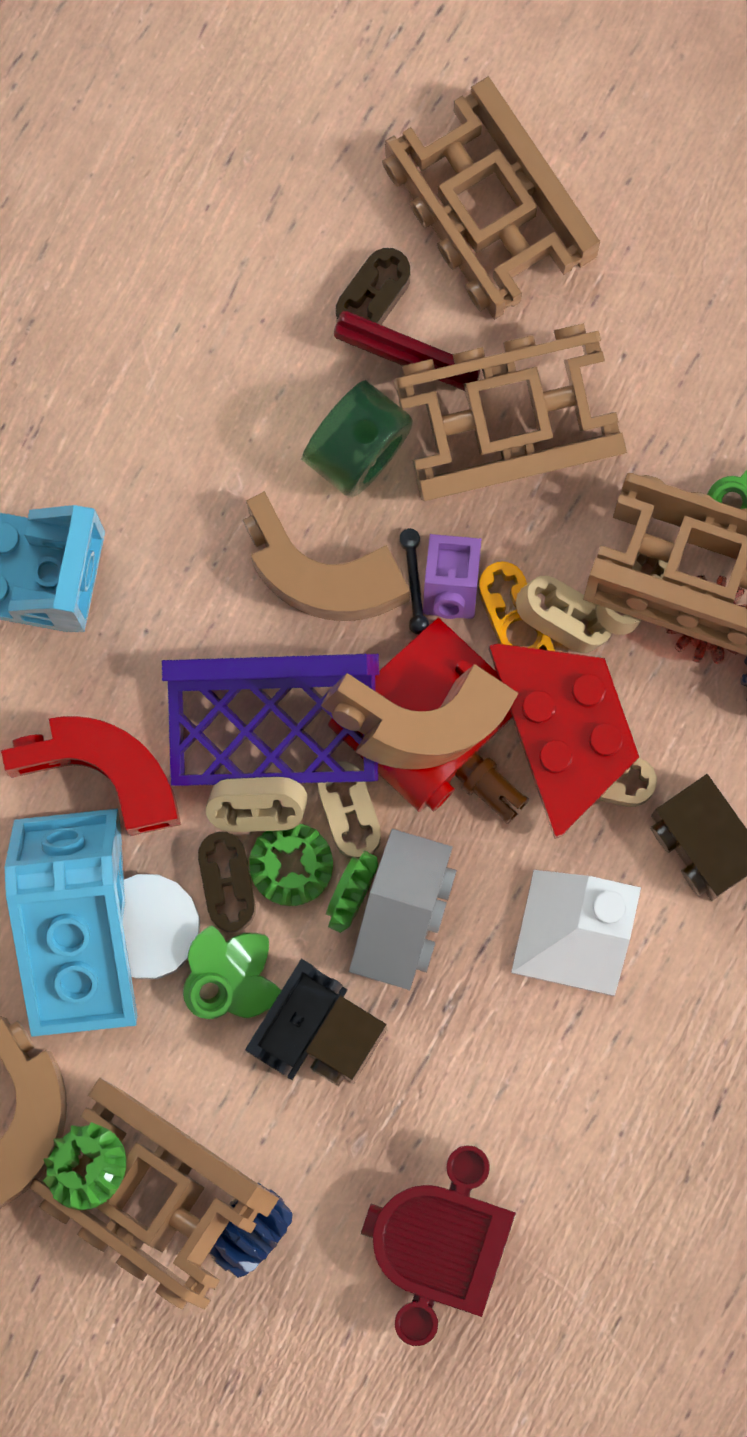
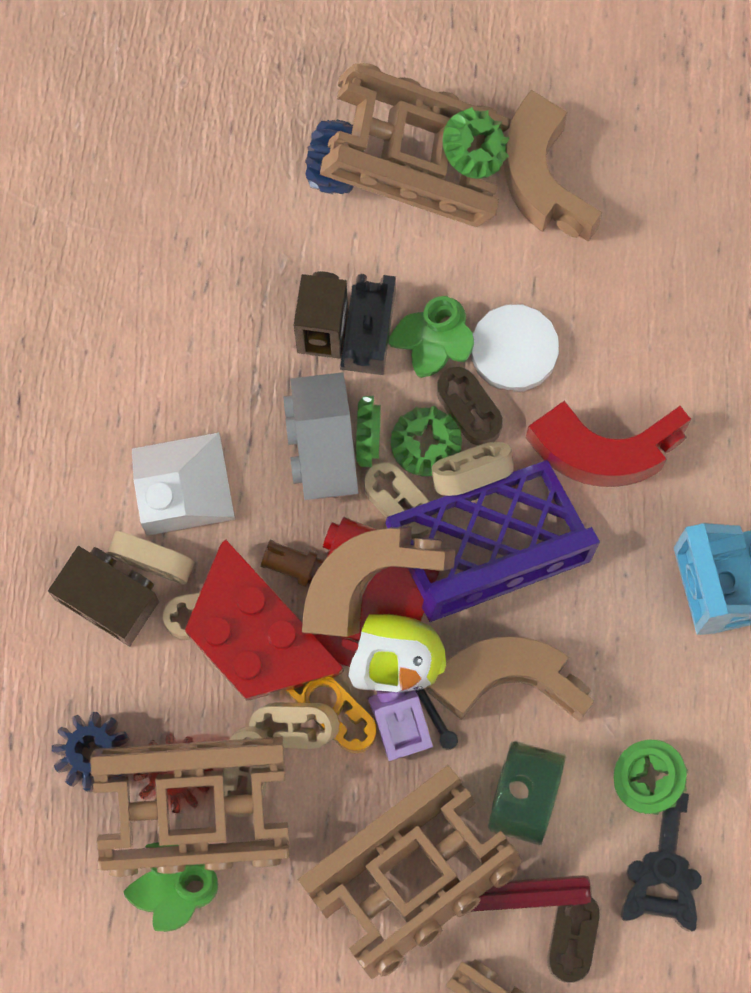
camera: 155 degrees right, 5 degrees down
(69, 921) = (580, 323): medium azure bracket -> none
(243, 398) = (634, 765): none -> bright green gear
(250, 321) = (667, 869): none -> black piece
(427, 627) = (397, 655): none -> piece
(440, 1245) = (188, 209): dark red piece -> none
(642, 859) = (150, 557): none -> tan beam

